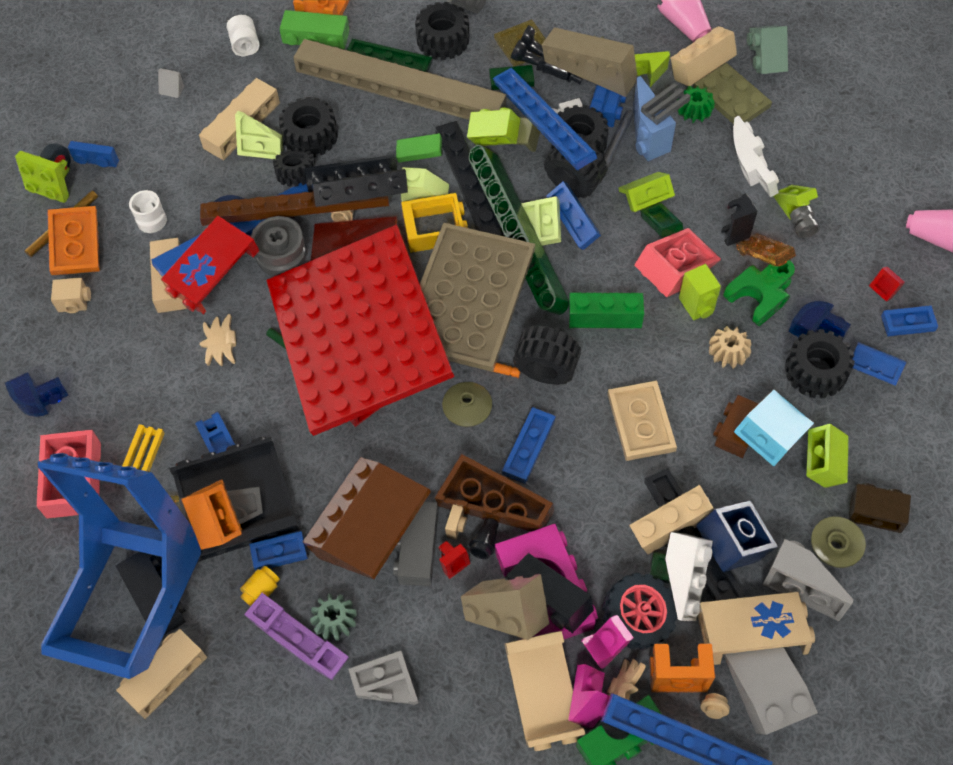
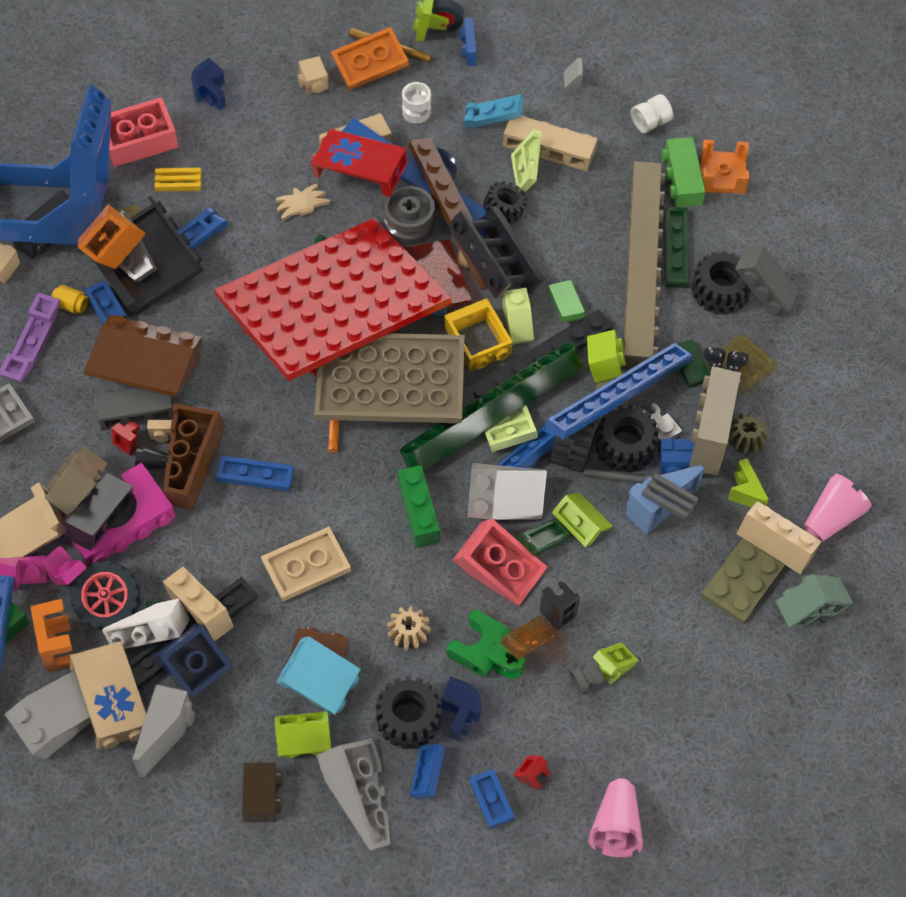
camera: 70 degrees right, 0 degrees up
(187, 151) = (493, 111): none -> dark azure plate
(307, 113) = (556, 185): black tyre -> none
(344, 617) = (53, 360): sand green gear -> none
(469, 413) = (289, 424): olive dish -> none
(547, 355) = (343, 460): black tyre -> none
(611, 239) = (506, 492): none -> slope
(626, 679) = (34, 595): tan piece -> none
(699, 106) = (702, 546): green gear -> none
(699, 292) = (457, 583): lime brick -> none
(715, 706) = (31, 676): tan plate -> none
(751, 157) = (658, 604): white slope -> none
(841, 531) = (214, 746): olive dish -> none
(877, 428) = (353, 779): none -> light grey wedge

